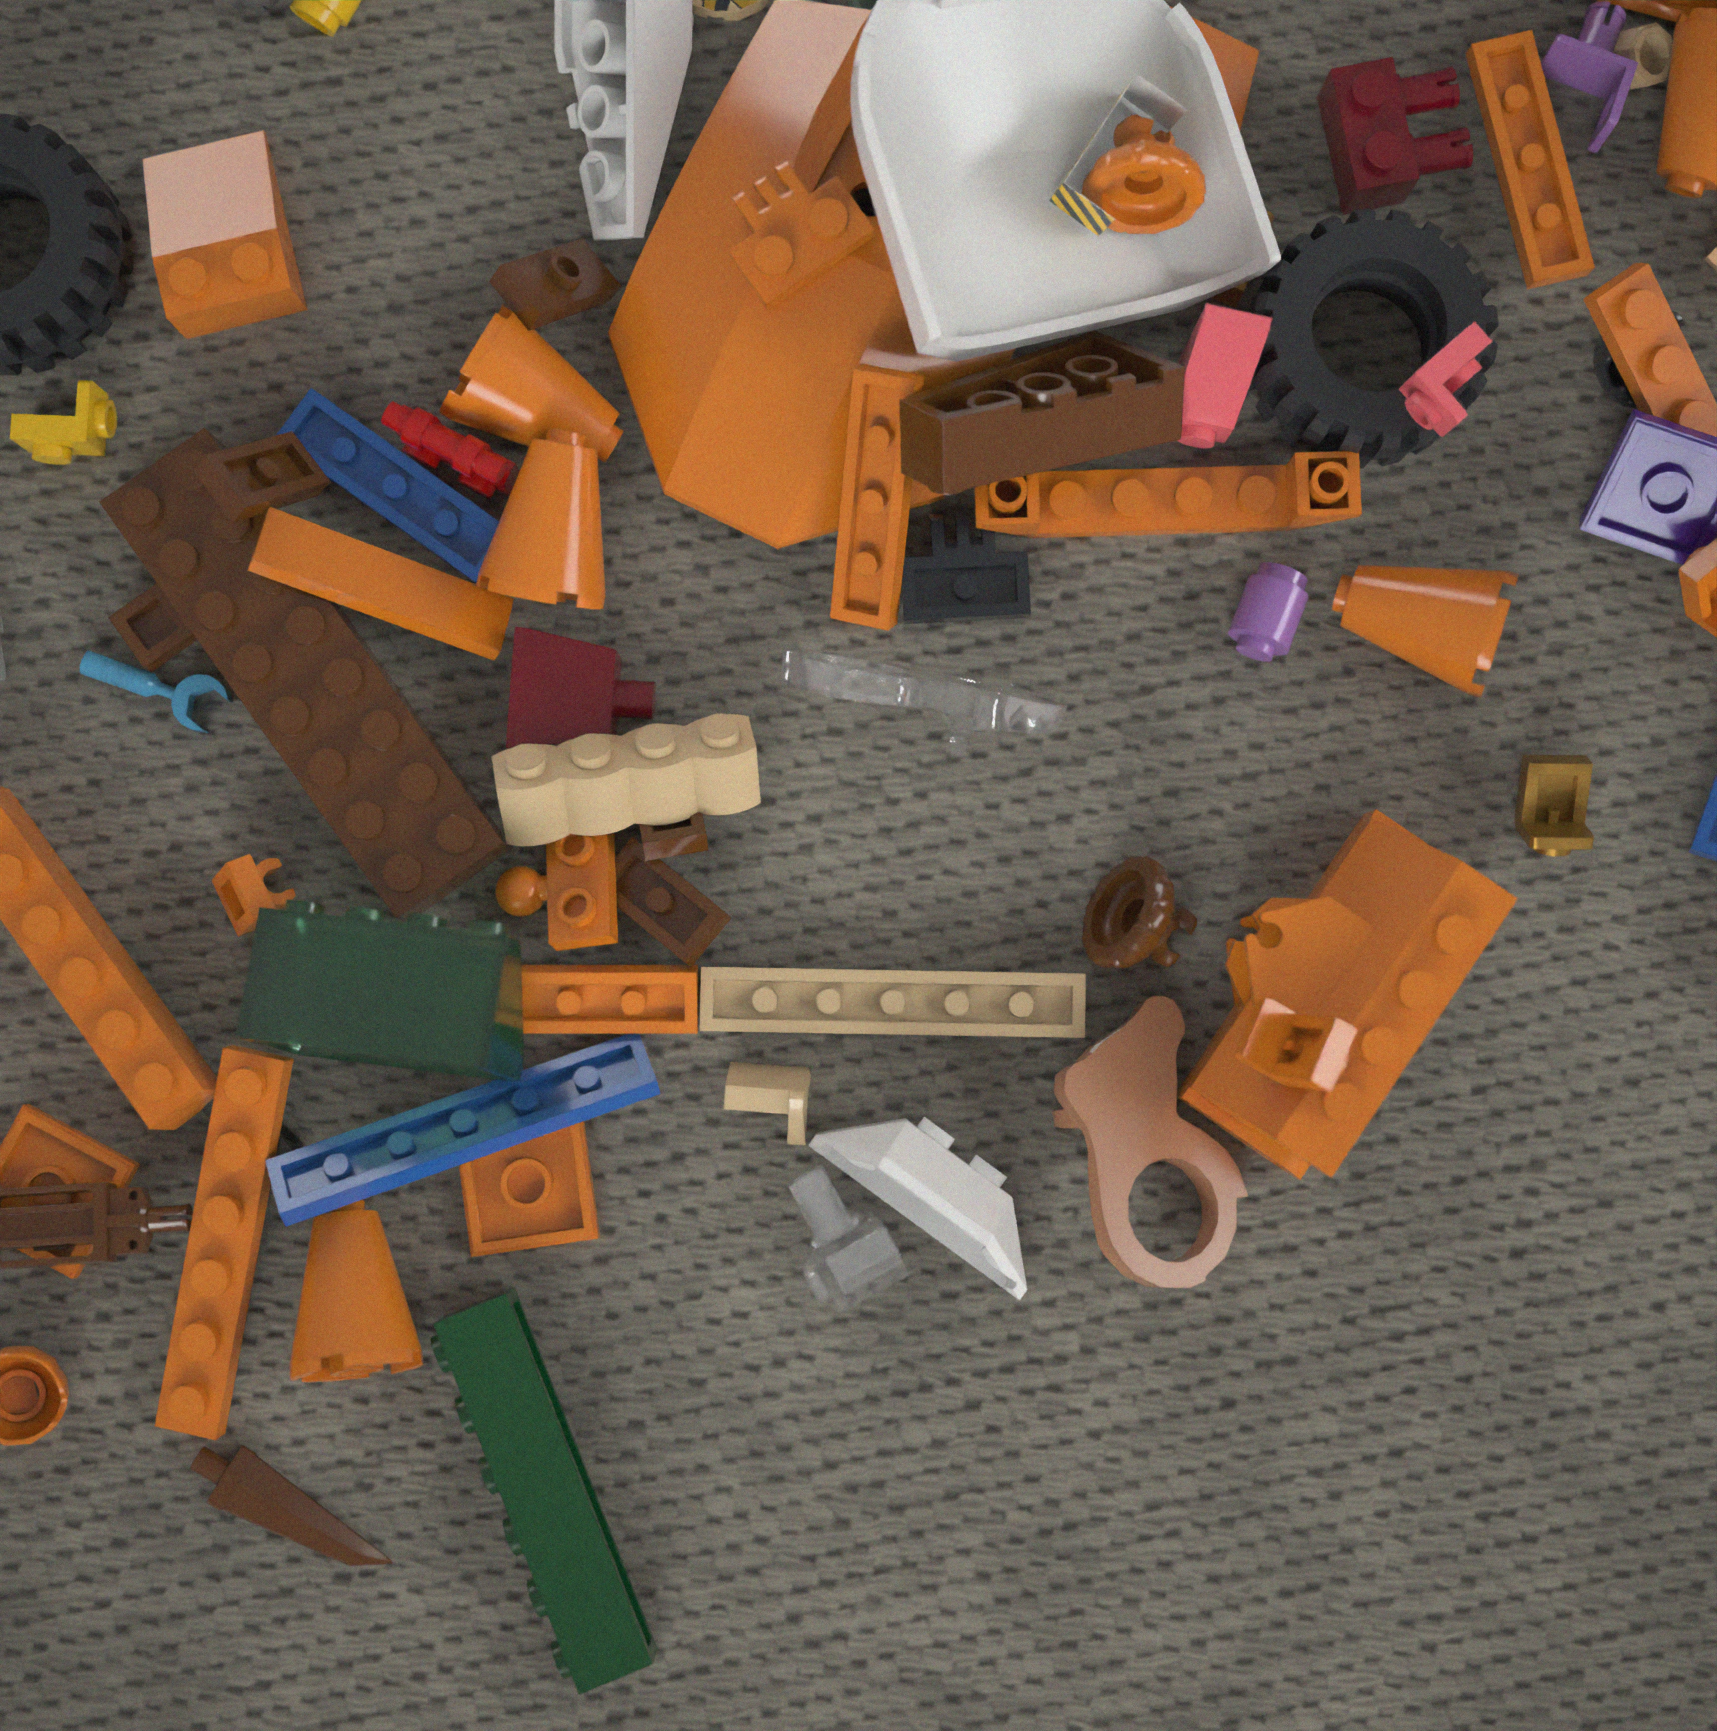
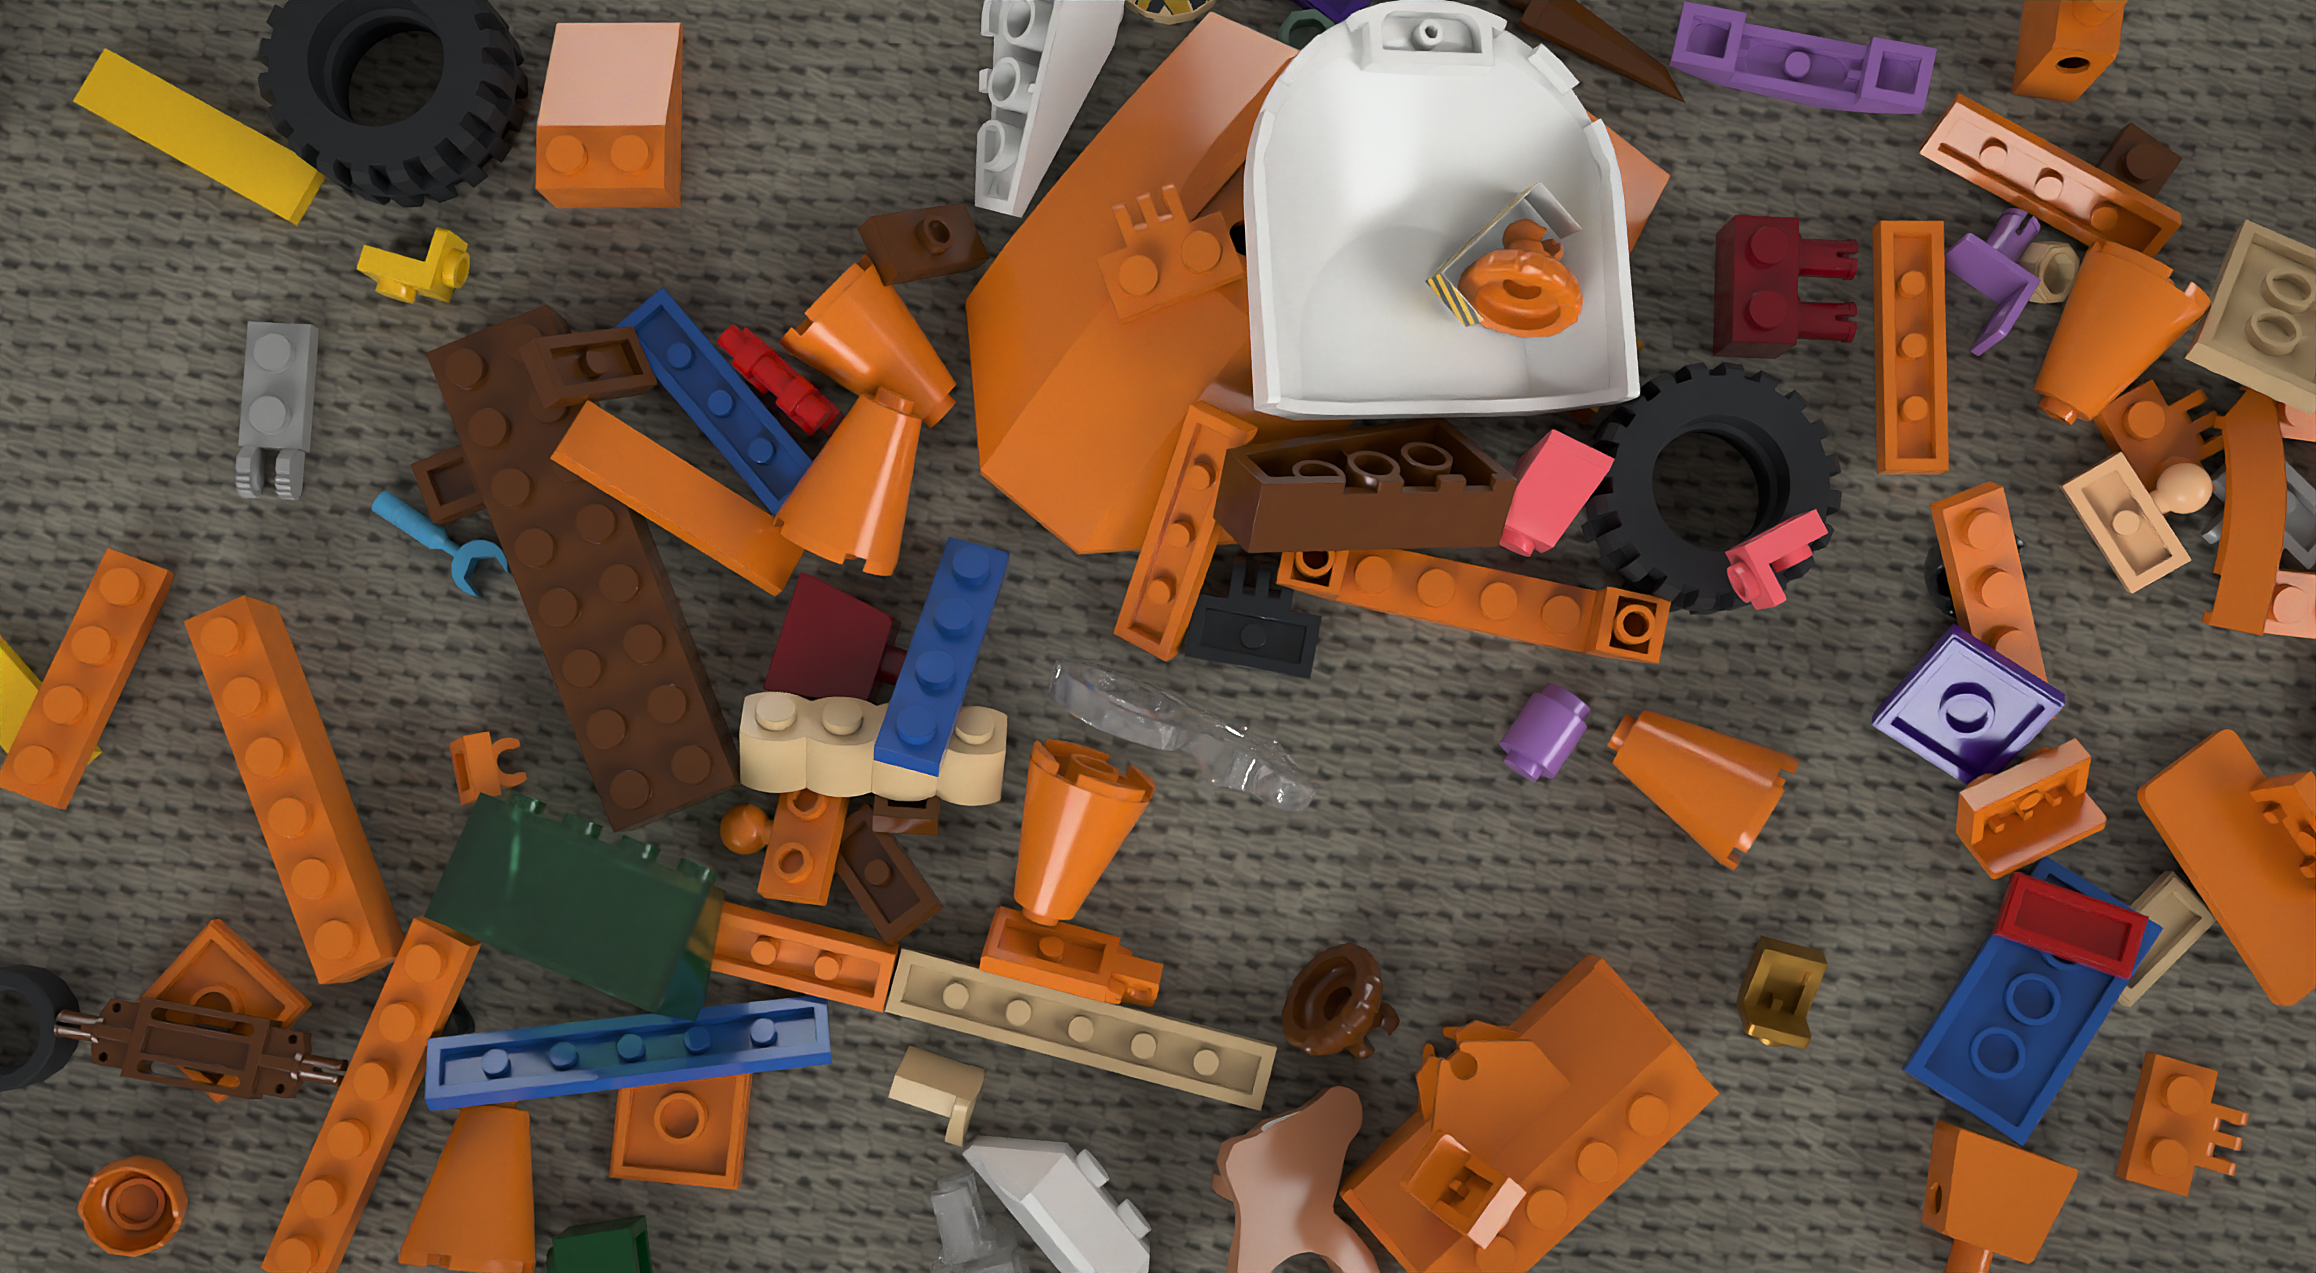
camera: 15 degrees right, 0 degrees up
(672, 674) = (941, 657): none -> blue plate
(836, 810) = (1072, 826): none -> orange cone
(864, 939) = (1068, 960): none -> orange hinge

